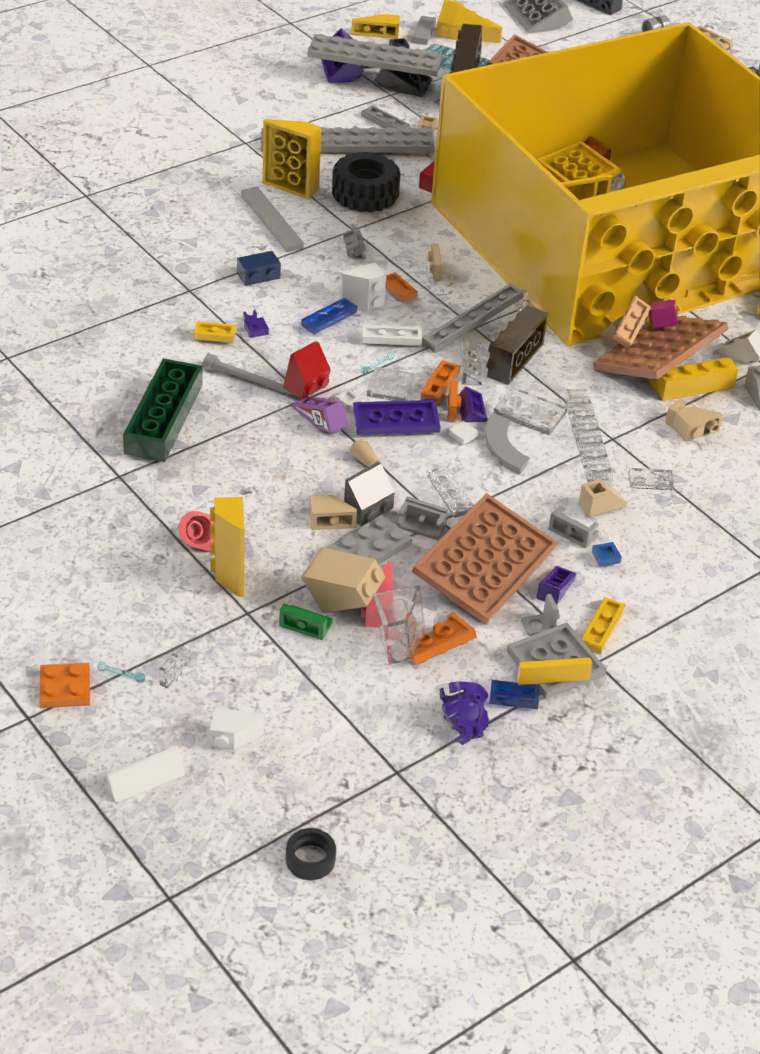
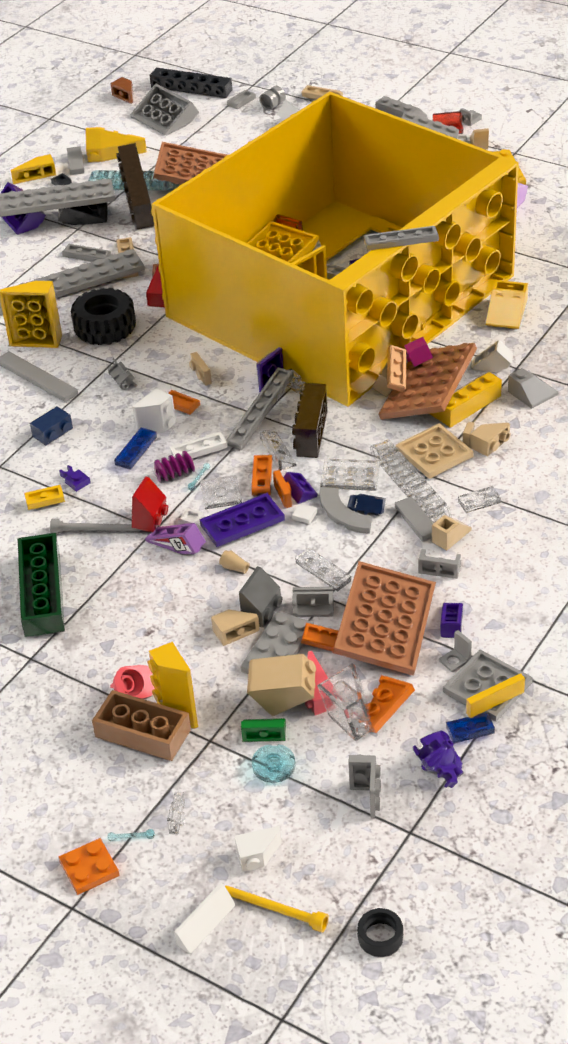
camera: 15 degrees left, 0 degrees up
(186, 573) = (141, 725): none -> medium nougat brick
(255, 819) = (317, 921): none -> yellow piece
(296, 656) = (273, 763): none -> clear light blue plate
(356, 344) = (173, 465): none -> magenta piece
(376, 701) = (363, 776): none -> light grey bracket
(407, 551) = (319, 636): none -> orange plate
(502, 277) = (268, 365): none -> dark purple slope
(531, 444) = (367, 503): none -> dark blue piece
(574, 473) = (415, 518): none -> light grey tile
(603, 624) = (507, 639): yellow tile -> none
(606, 554) = (478, 578): blue plate -> none
(624, 20) = (241, 99): none -> light grey tile
(631, 416) = (434, 450): none -> tan plate
(678, 182) = (401, 238): none -> light grey tile

